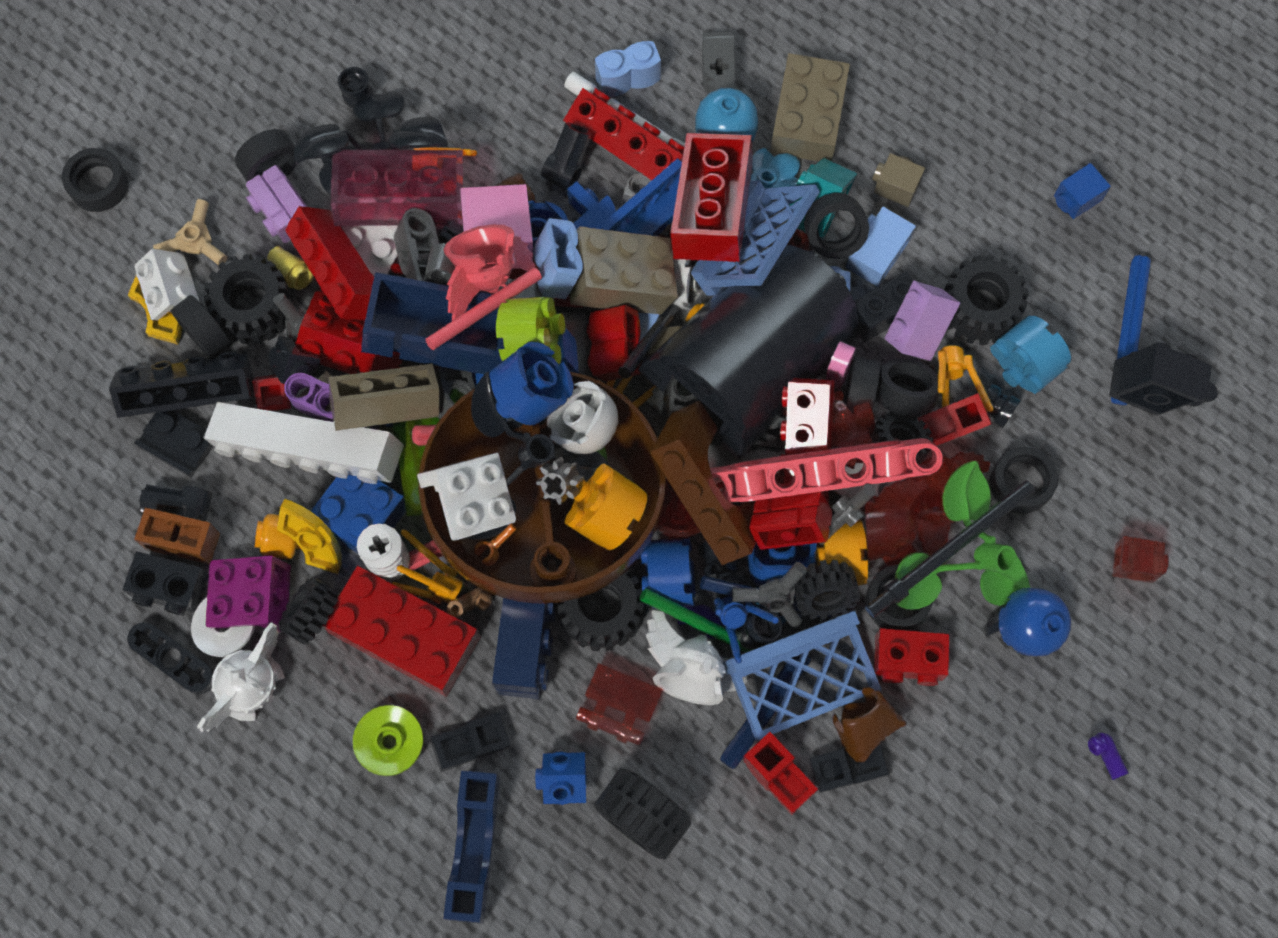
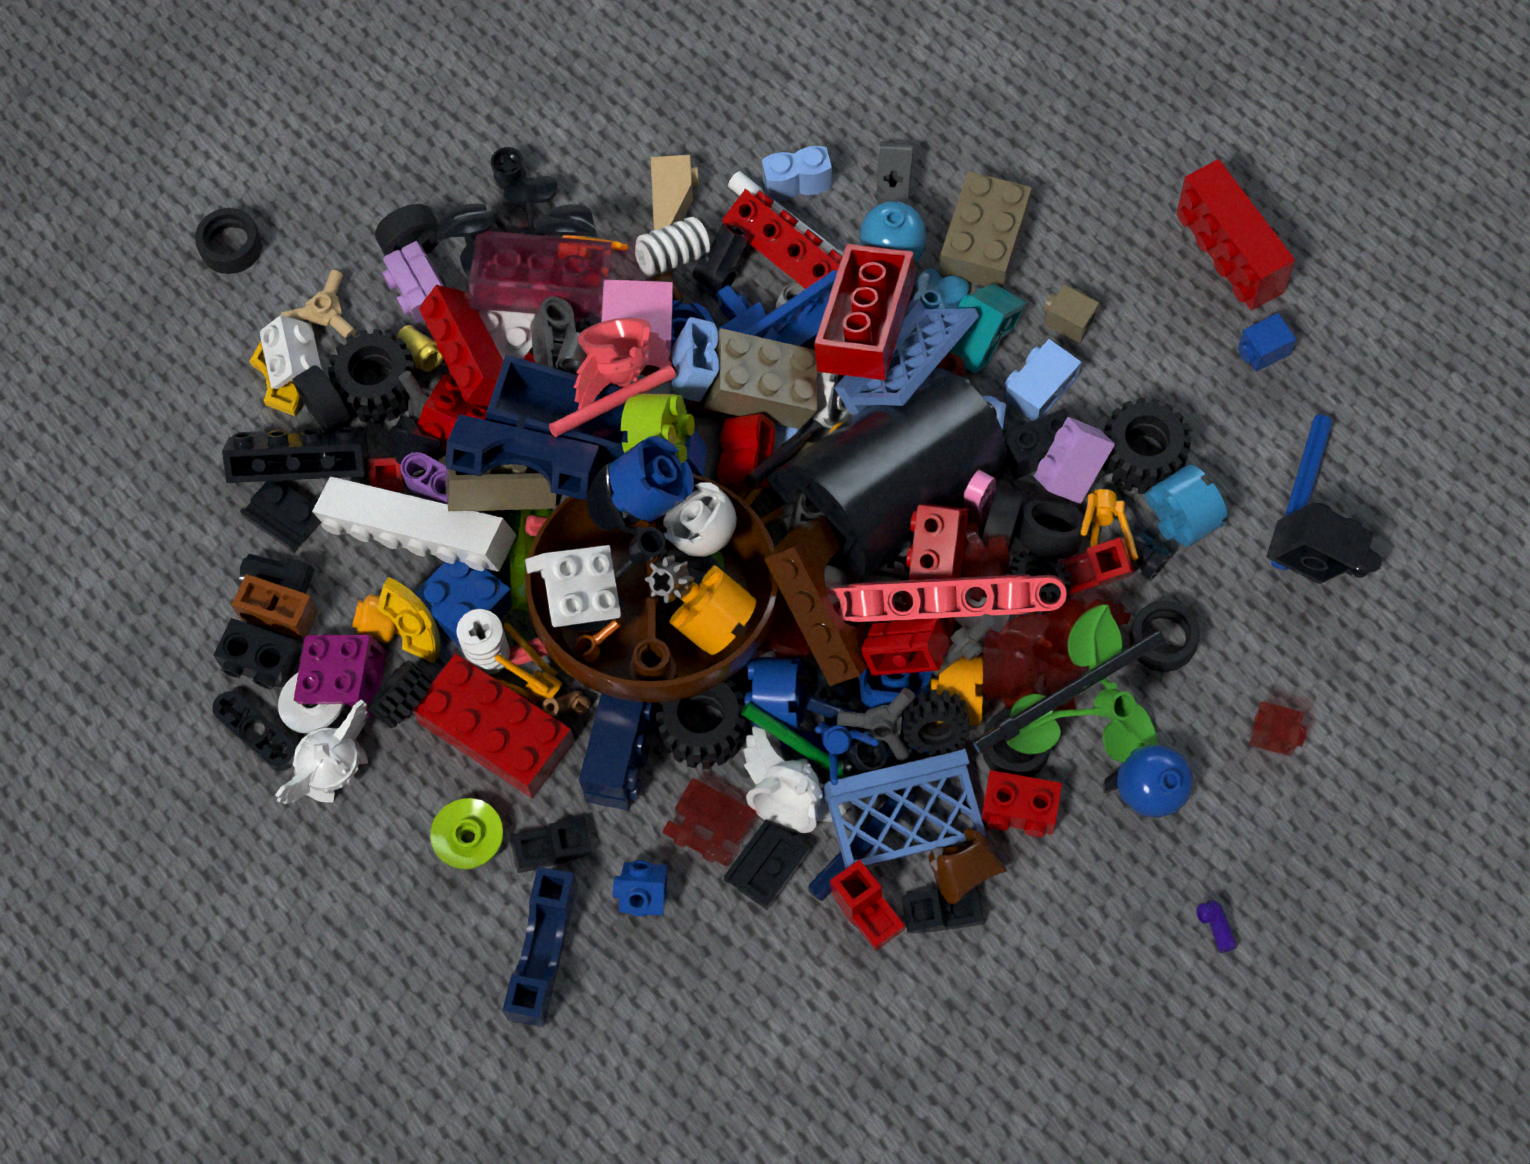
camera: 10 degrees right, 5 degrees down
(361, 364) = (483, 444): none -> dark blue arch
(513, 101) = (672, 188): none -> tan slope
(519, 149) = (671, 245): none -> white piece
(643, 813) = (719, 929): black tyre -> none
(678, 740) = (766, 864): none -> black plate
(849, 244) = (995, 378): black tyre -> none
(1041, 92) = (1234, 235): none -> red brick

